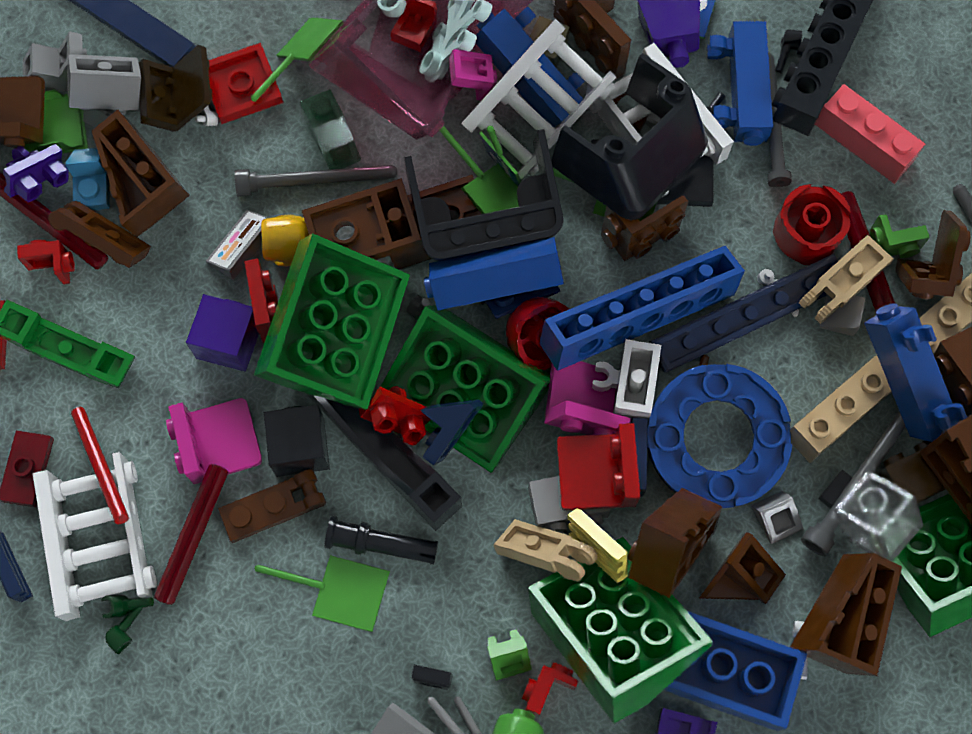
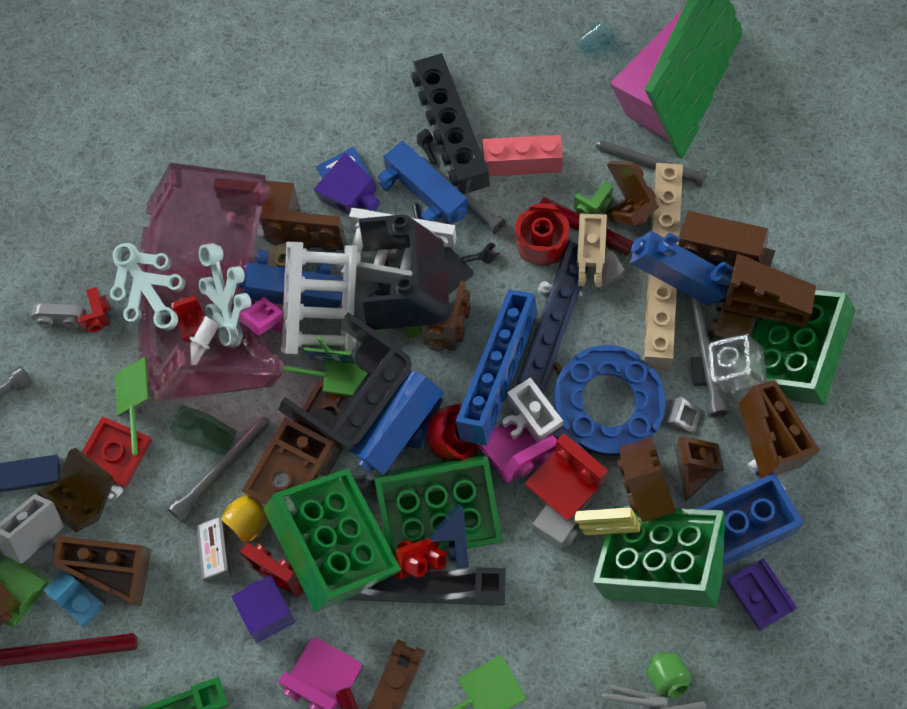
camera: 40 degrees left, 5 degrees down
(31, 168) = (30, 625): dark purple hips -> none
(47, 254) = (93, 670): red bracket -> none
(99, 233) = (117, 624): reddish brown plate -> none
(296, 440) = (373, 629): black head -> none
(363, 539) = (468, 649): black pin -> none
(400, 49) = (202, 339): none -> white axle
(431, 677) = (588, 687): black tile -> none
(509, 656) = (618, 633): bright green tile -> none
(537, 691) = (653, 636): red bracket -> none
(545, 549) = (580, 553): tan hinge -> none
(739, 197) = (485, 255): none -> black hand

